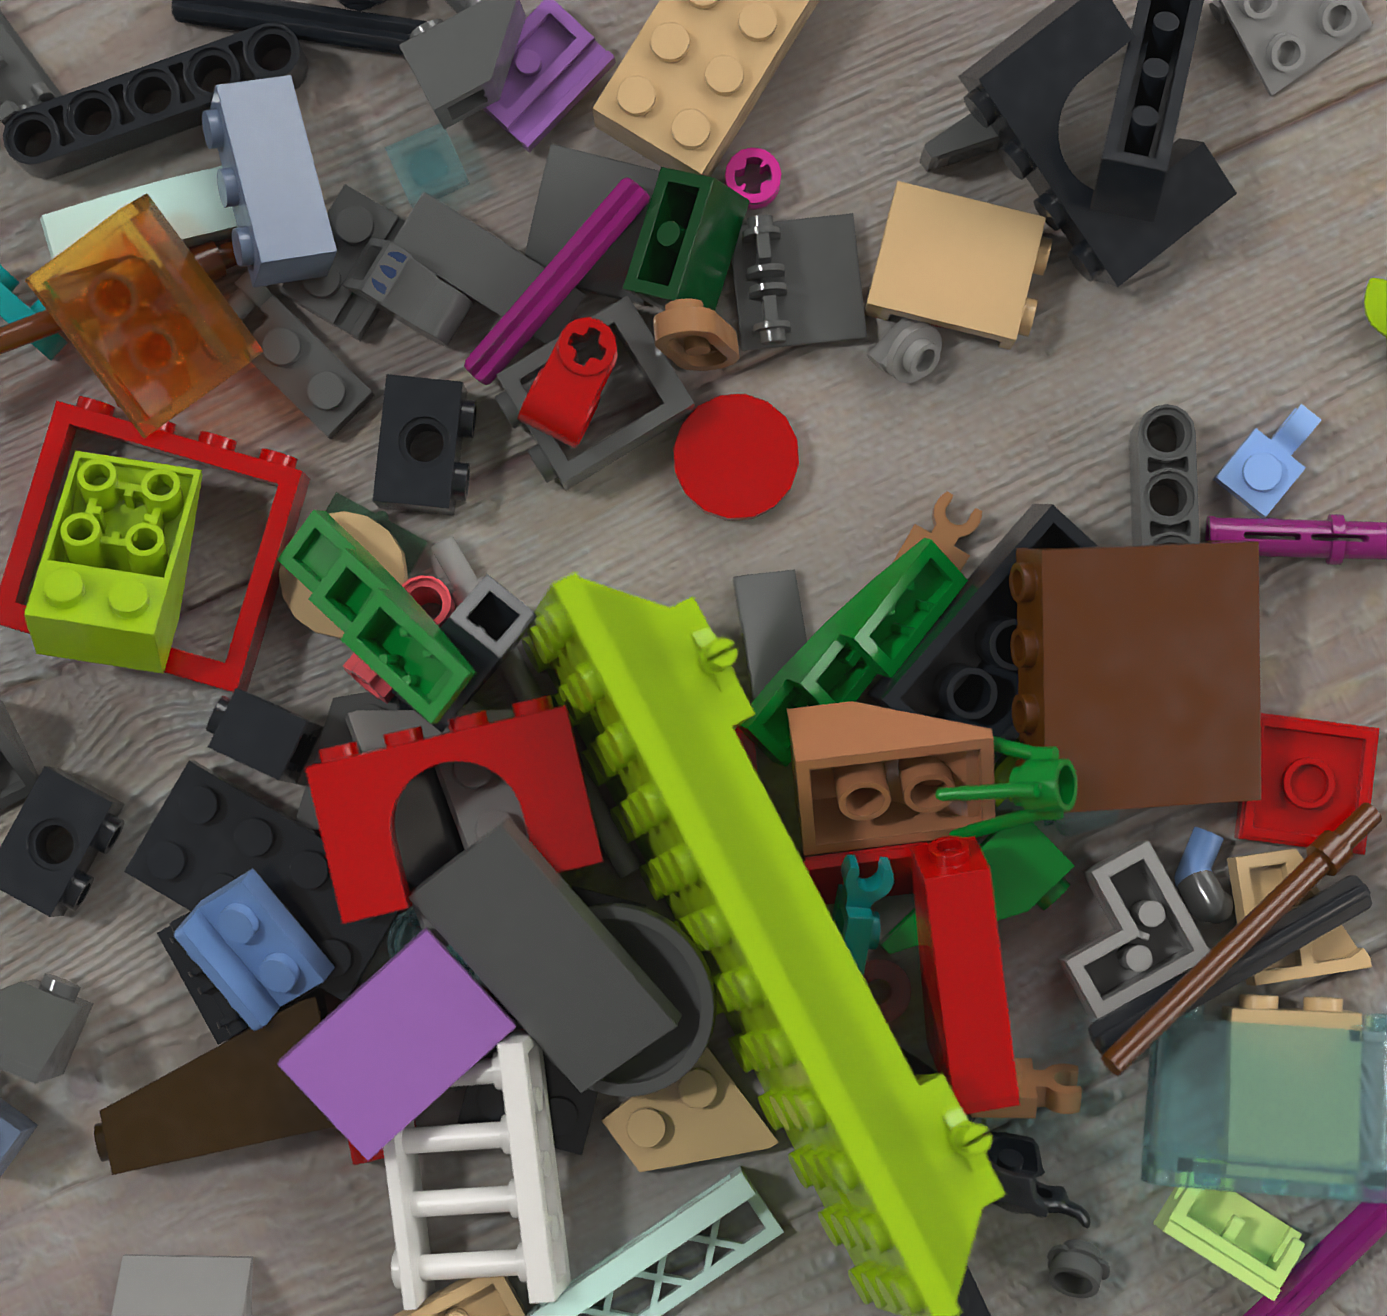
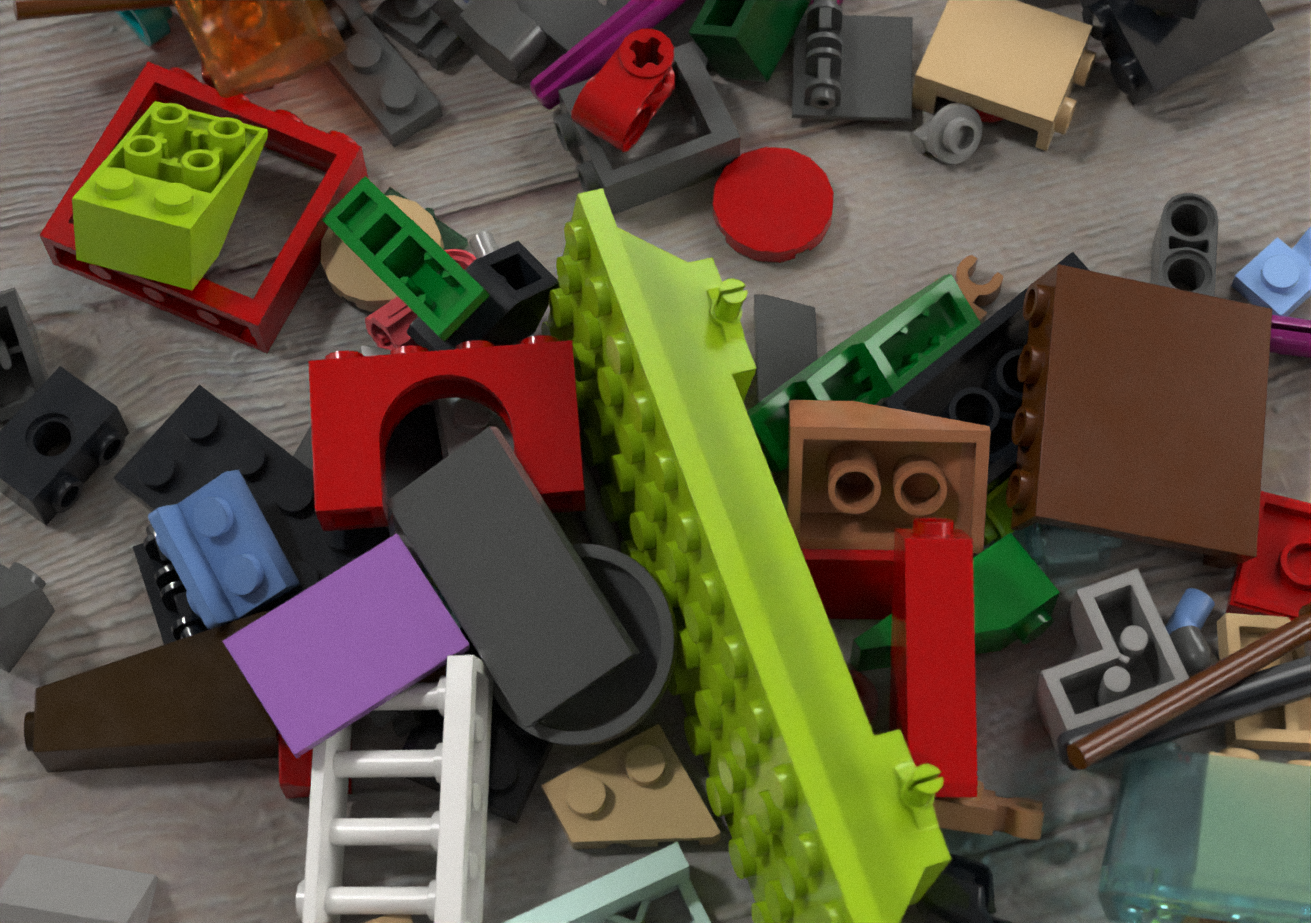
camera: 10 degrees right, 20 degrees down
(262, 735) = (269, 363): black brick -> none
(409, 409) = (474, 120): black brick -> none
(695, 336) = (750, 84): medium nougat plate -> none
(853, 904) = (837, 590): teal plate -> none
(1041, 785) = (1028, 473): green plant -> none

